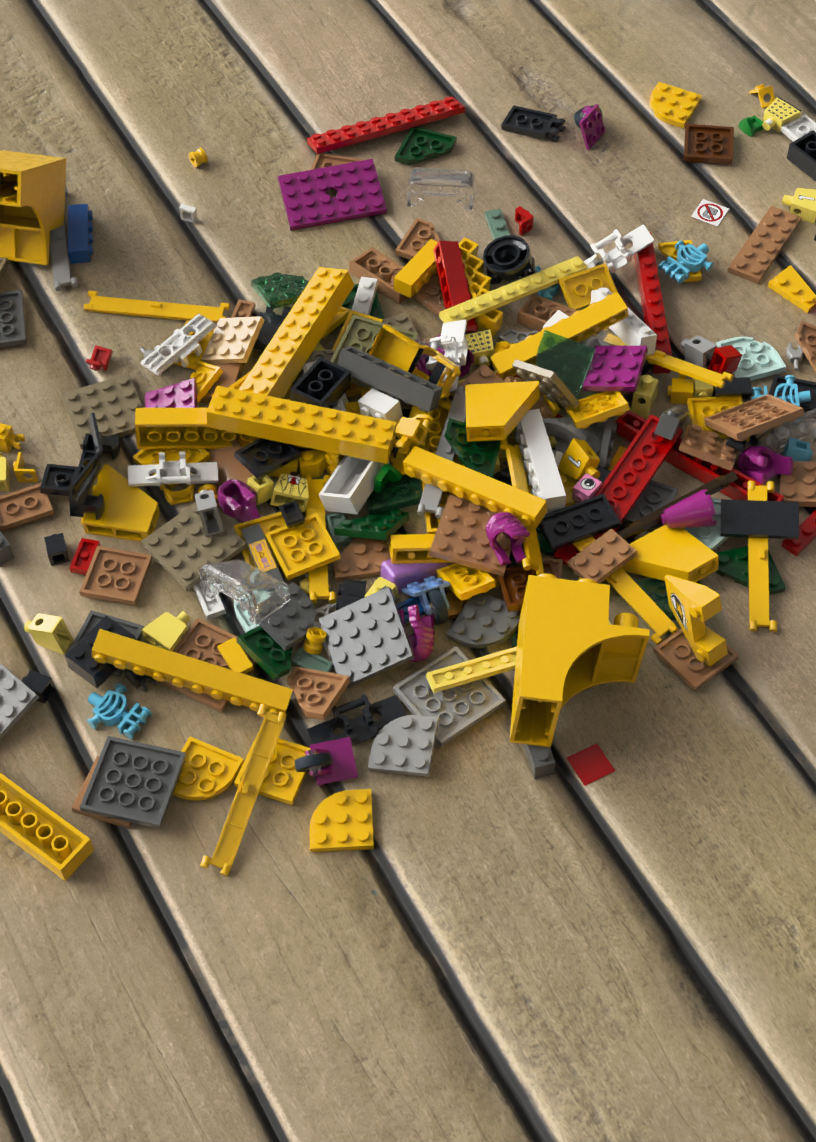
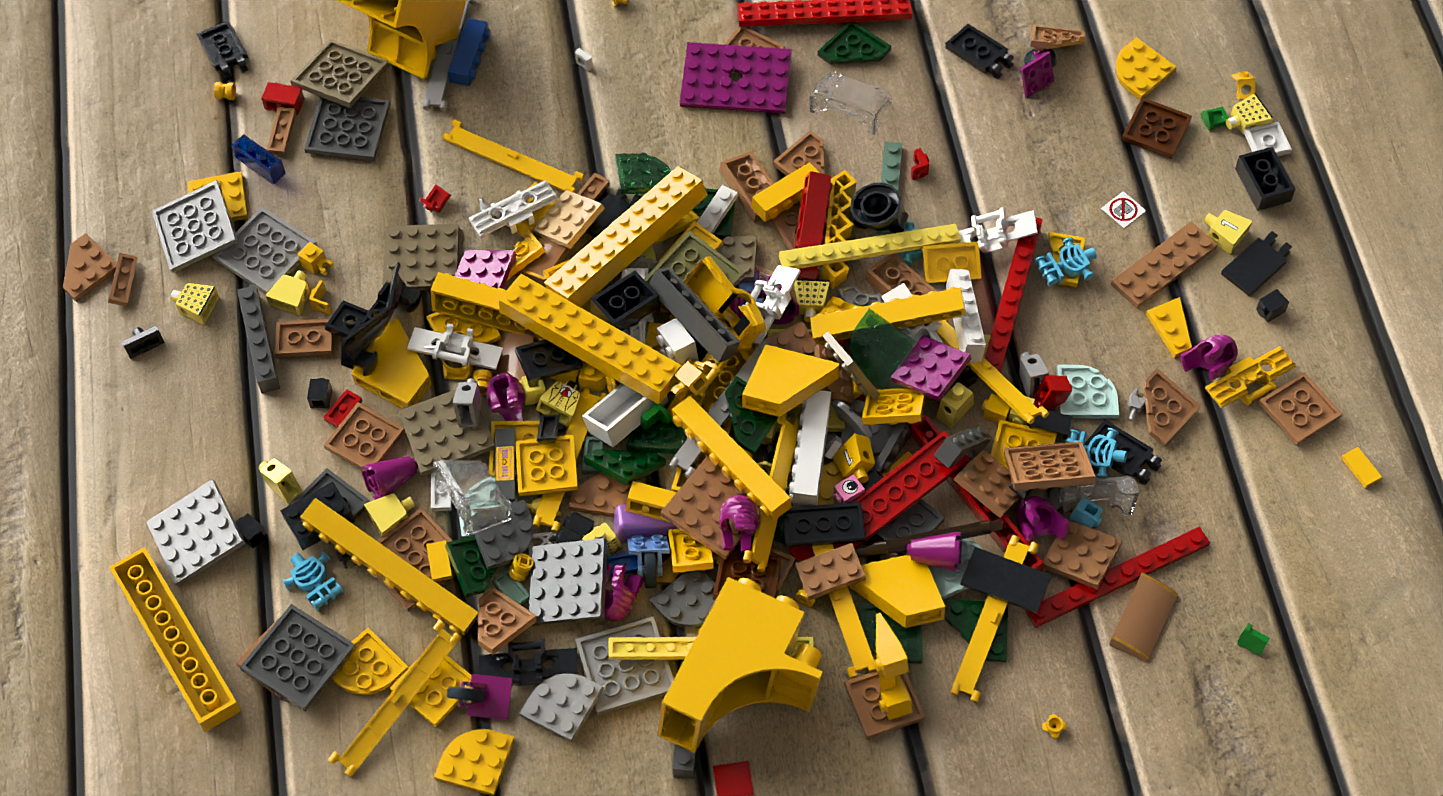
camera: 20 degrees right, 5 degrees up
(153, 599) = (388, 475): none -> magenta cone
(586, 98) = (1050, 37): none -> medium nougat plate

